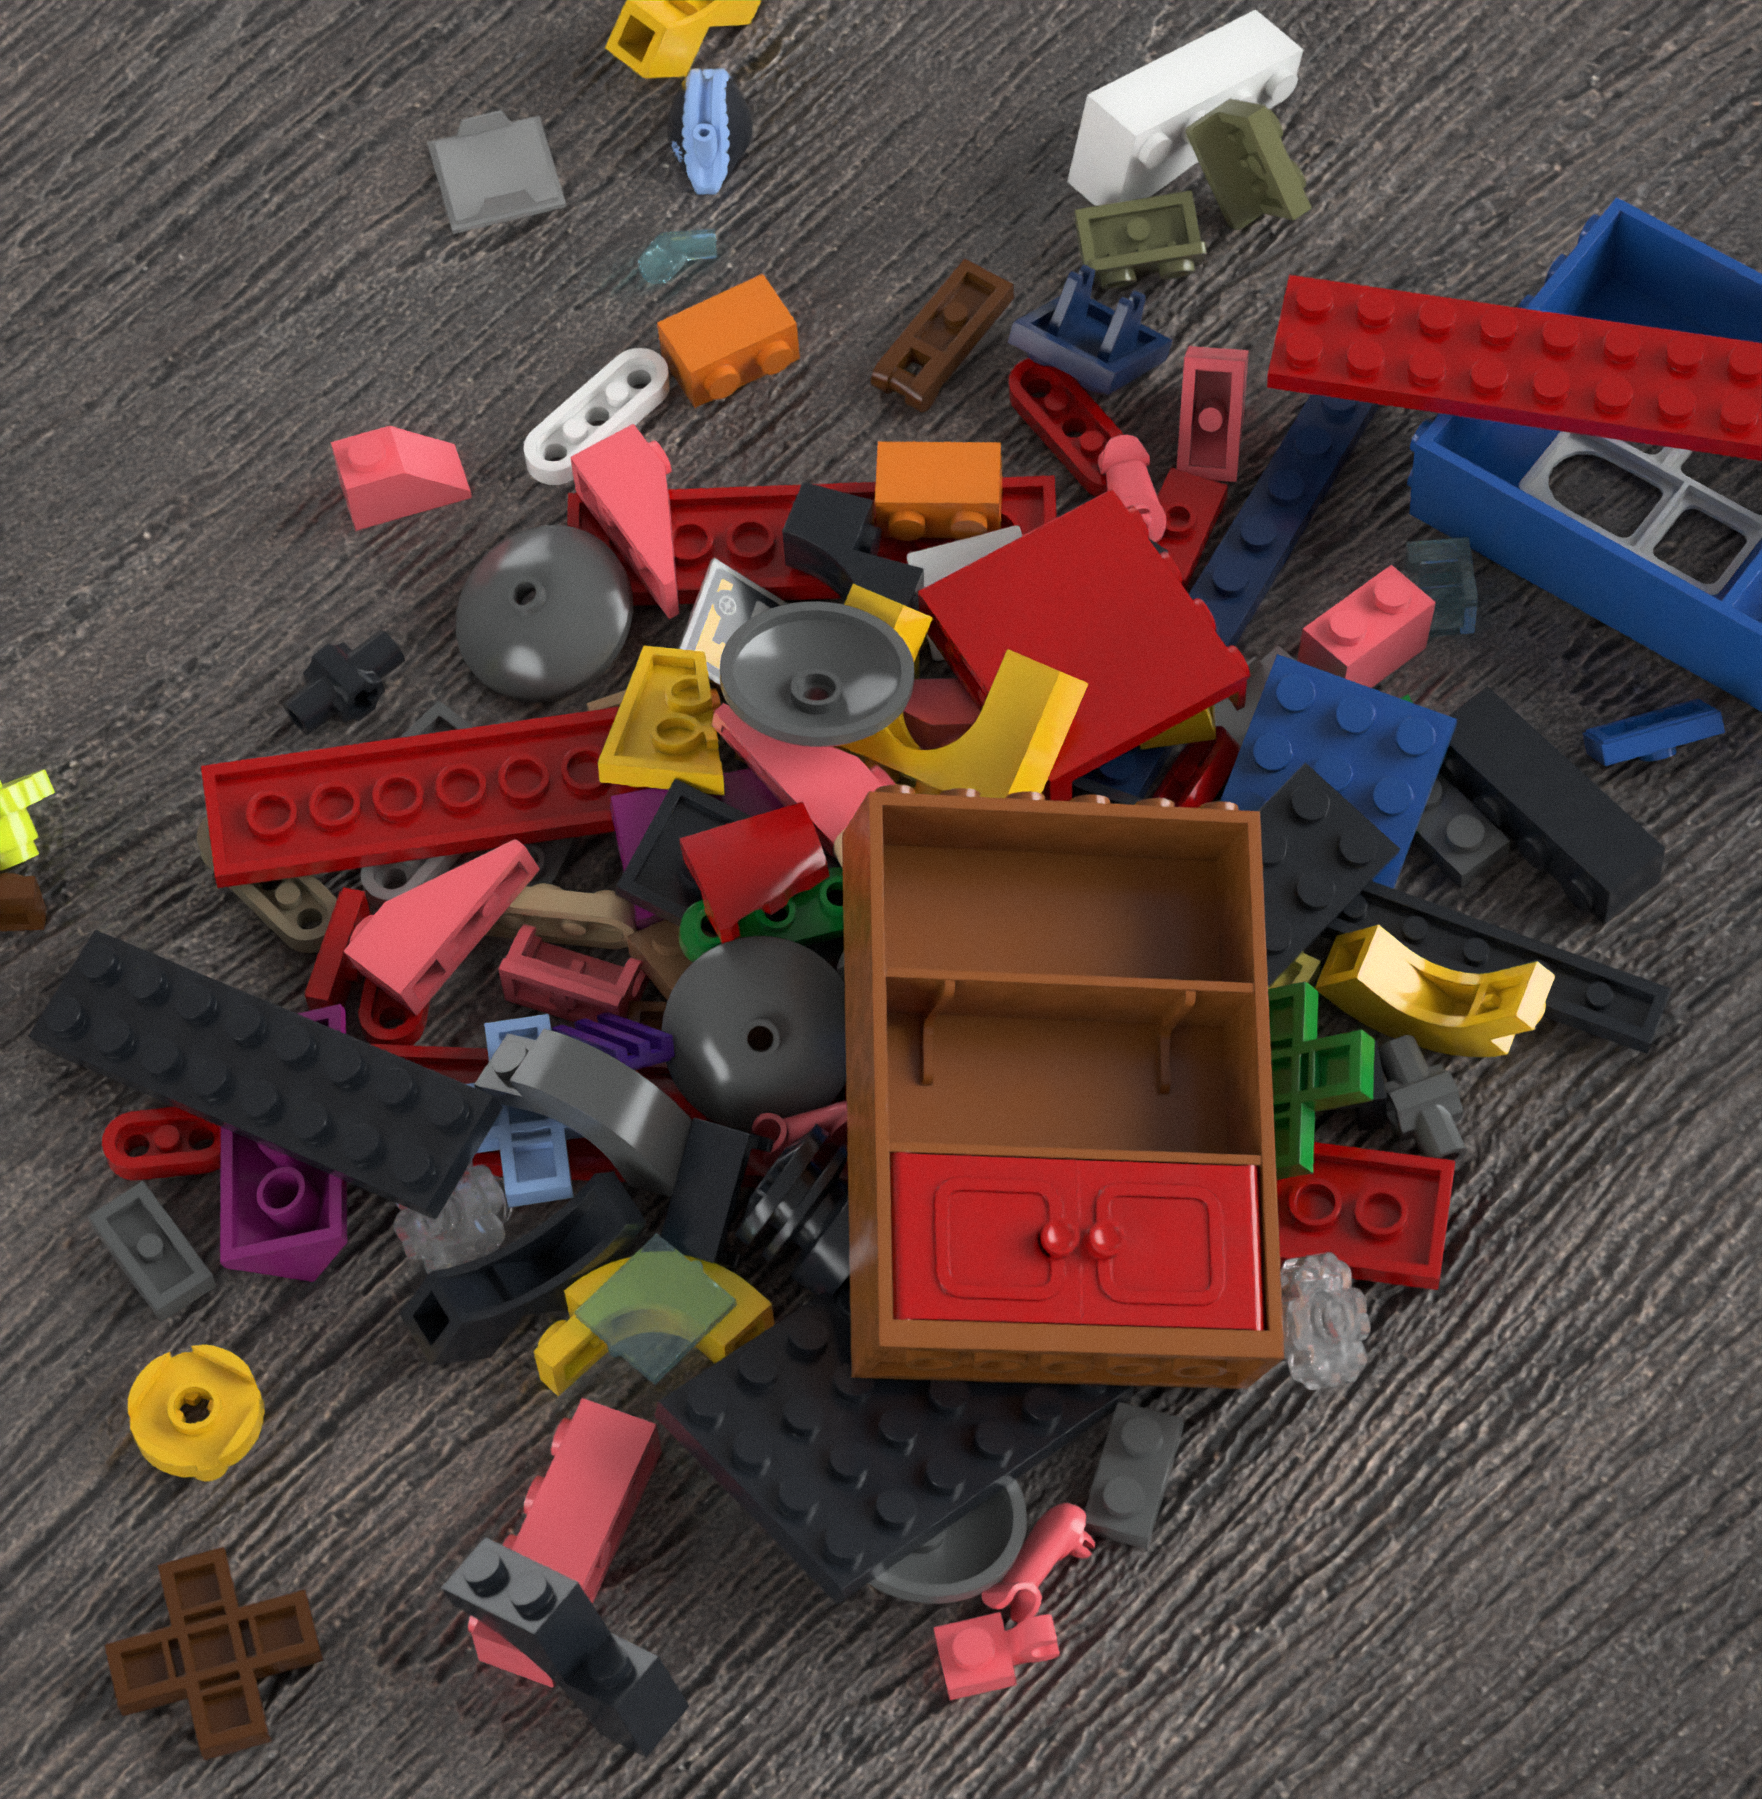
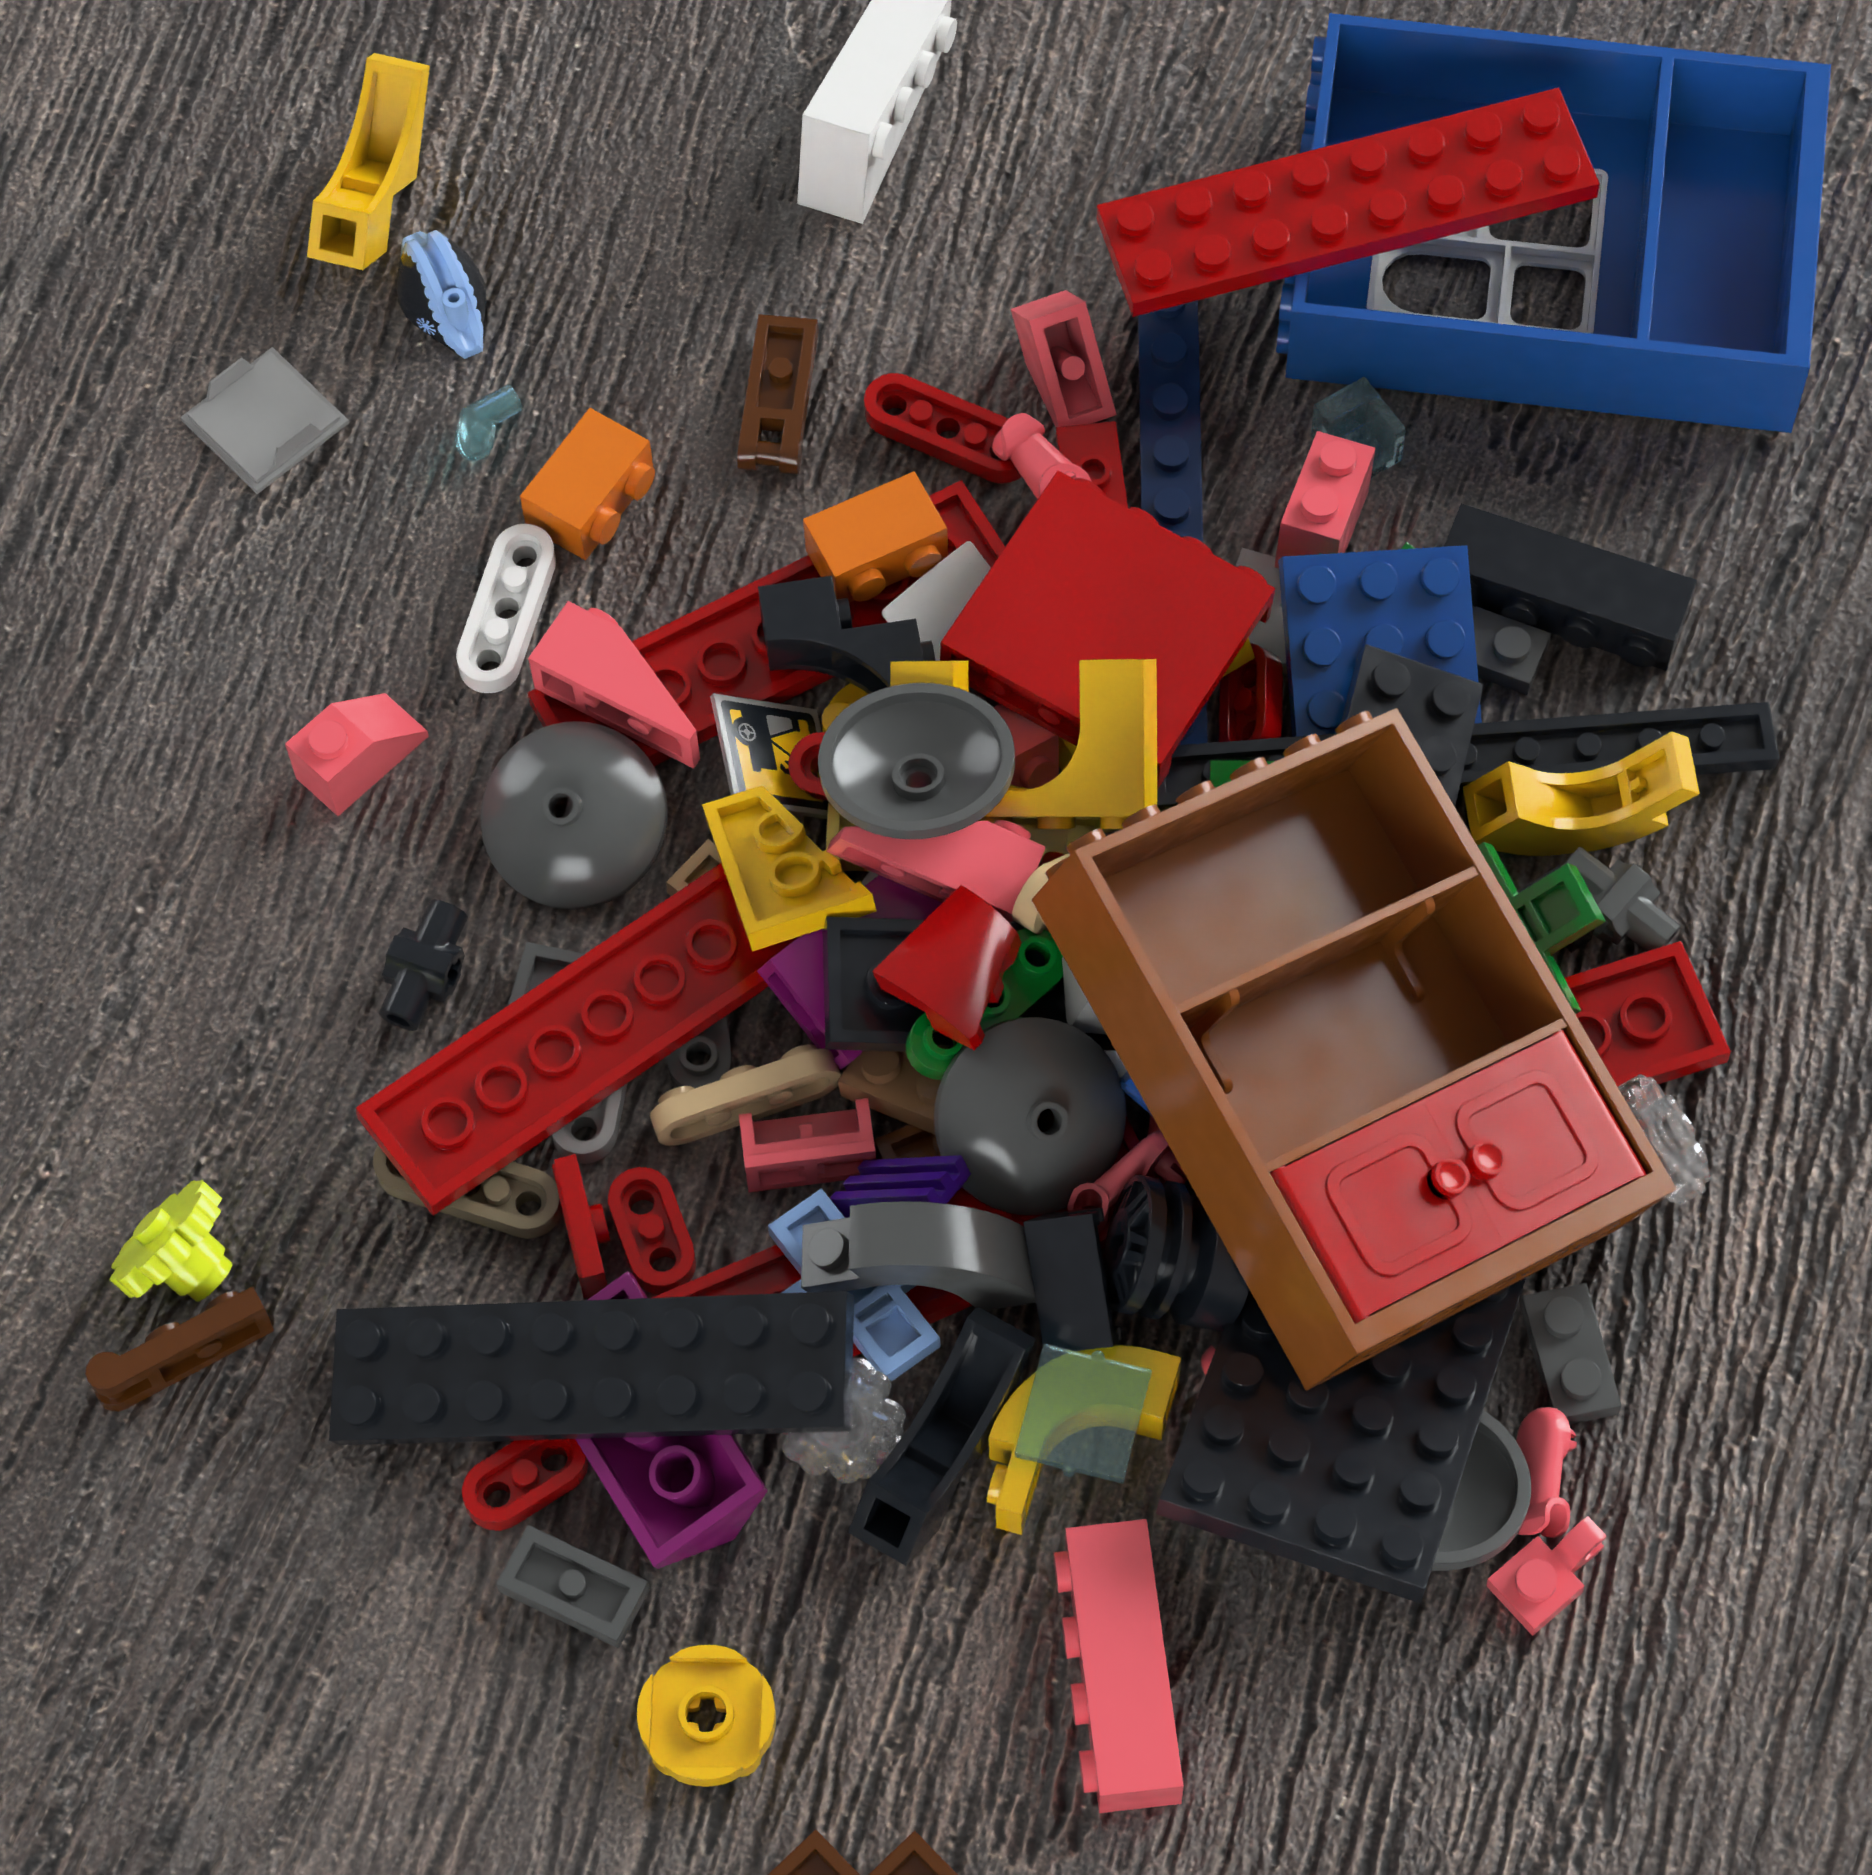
camera: 30 degrees left, 5 degrees up
(431, 929) = (666, 1161): coral slope -> none
(557, 1627) = (1184, 1751): black arch -> none
(1089, 339) = (920, 340): dark blue plate -> none
(1140, 239) = (901, 228): olive bracket -> none
(1248, 163) = (969, 117): olive bracket -> none
(1654, 733) = (1614, 481): blue plate -> none

